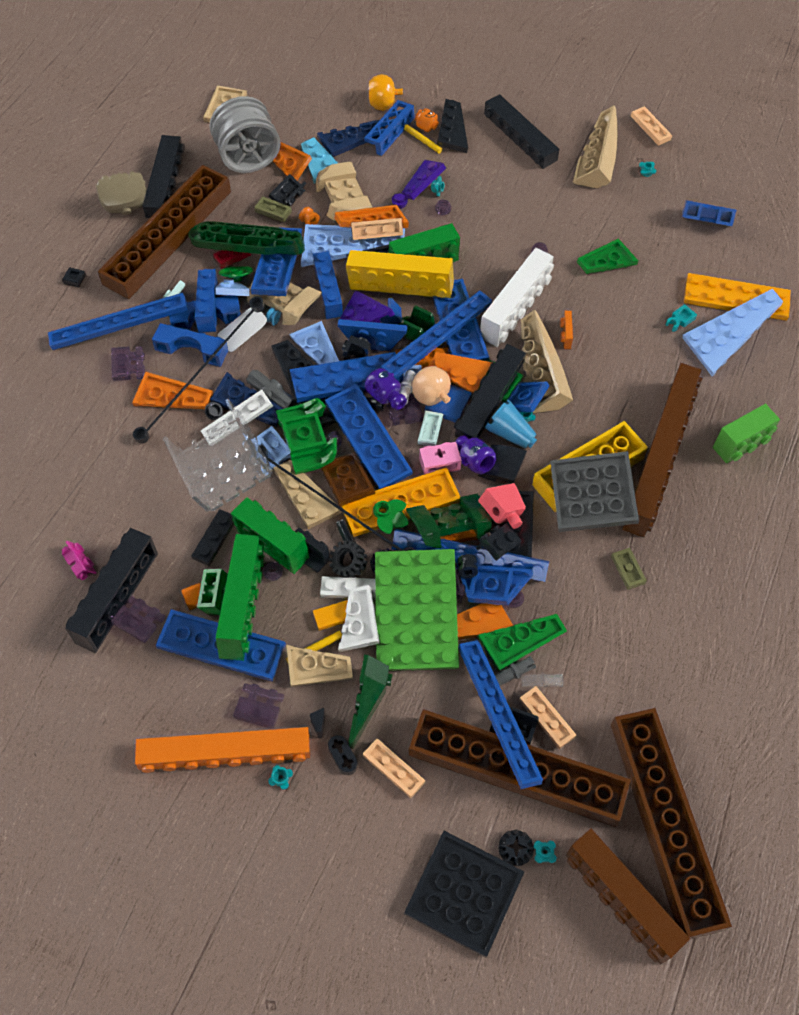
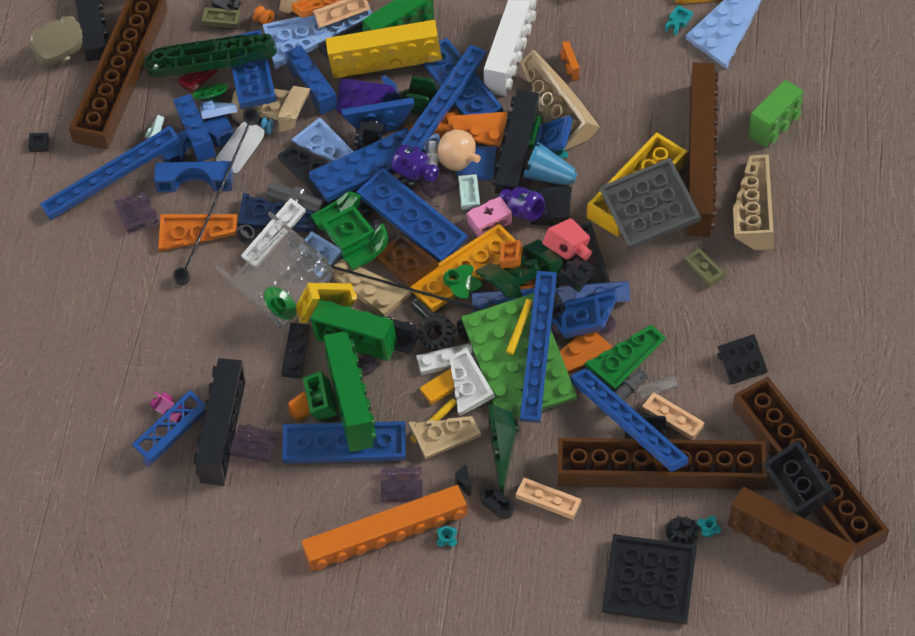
camera: 15 degrees left, 5 degrees down
(64, 589) = (175, 433): none -> blue fence
(211, 488) = (280, 303): none -> green dish
(267, 496) = (339, 293): none -> yellow panel
(425, 580) = (519, 327): none -> yellow bar
(435, 607) = (538, 347): none -> blue plate
(444, 502) = (510, 254): none -> orange plate
(636, 676) = (742, 359): none -> black hinge
(652, 840) = (799, 480): none -> black brick
(696, 521) = (754, 206): none -> tan wedge

